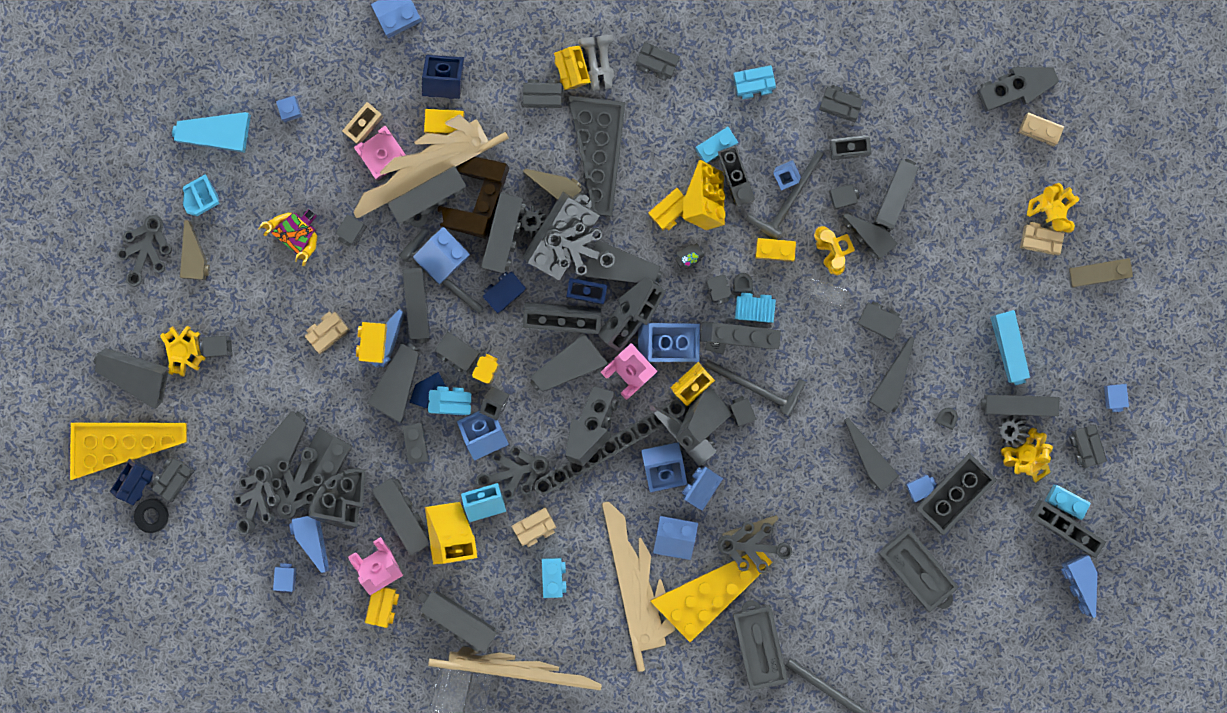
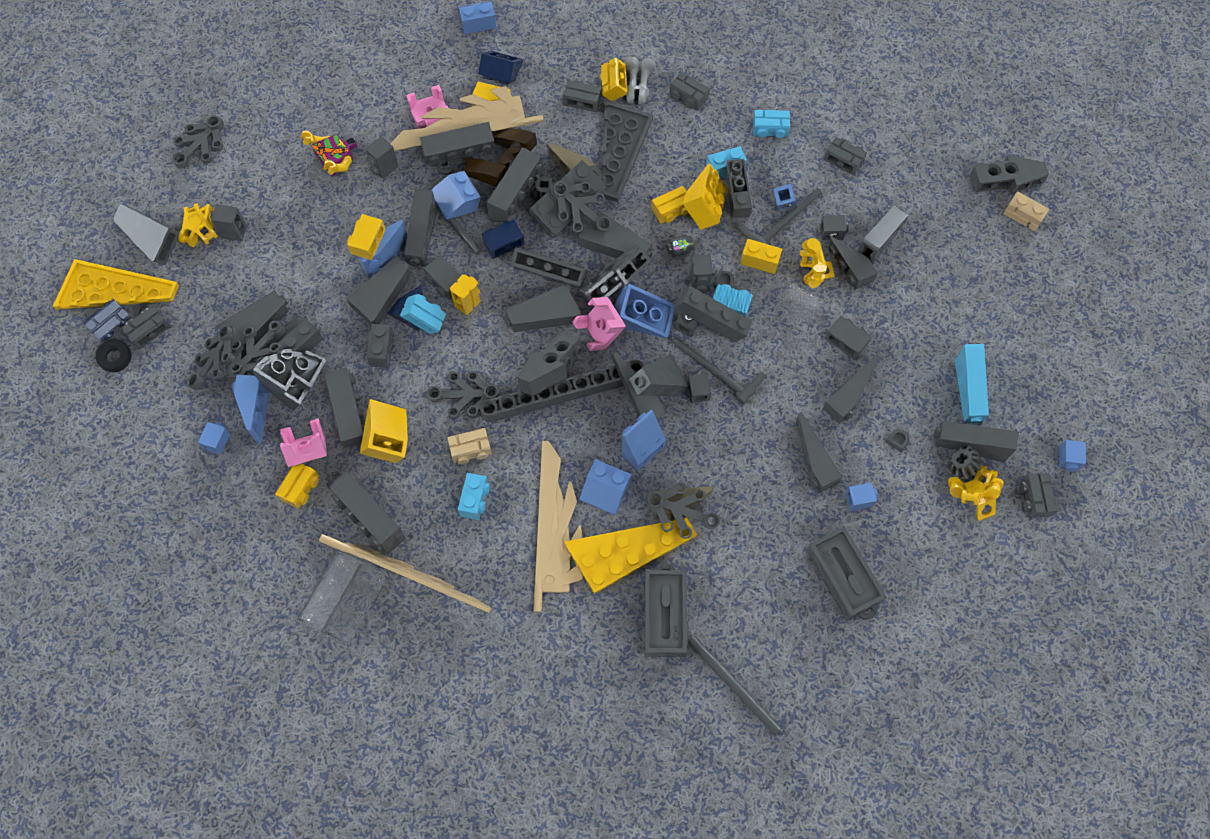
camera: 15 degrees right, 20 degrees down
(193, 259) = (236, 155): dark tan slope -> none
(199, 196) = (262, 110): medium azure slope -> none
(218, 132) = (294, 66): medium azure slope -> none
(289, 108) = (362, 61): medium blue brick -> none
(327, 332) = (331, 236): tan brick -> none
(362, 123) = (420, 81): tan brick -> none
(482, 434) = (446, 352): medium blue slope -> none
(483, 502) = (427, 411): medium azure brick -> none
(494, 403) = (464, 326): dark grey brick -> none
(586, 291) = (578, 251): dark blue brick -> none
(664, 467) = (609, 419): medium blue slope -> none
(692, 384) = (657, 349): yellow brick -> none
(850, 147) = (847, 188): dark grey brick -> none
(956, 494) = (896, 507): dark grey slope -> none
(1042, 239) = (1015, 301): tan brick -> none
(1052, 205) = (1030, 269): yellow piece -> none
(1067, 502) = (1011, 543): medium azure brick -> none
(1067, 528) = (1006, 564): dark grey brick -> none
(1083, 582) = (1019, 623): medium blue slope -> none
(1101, 272) = (1073, 341): dark tan slope -> none

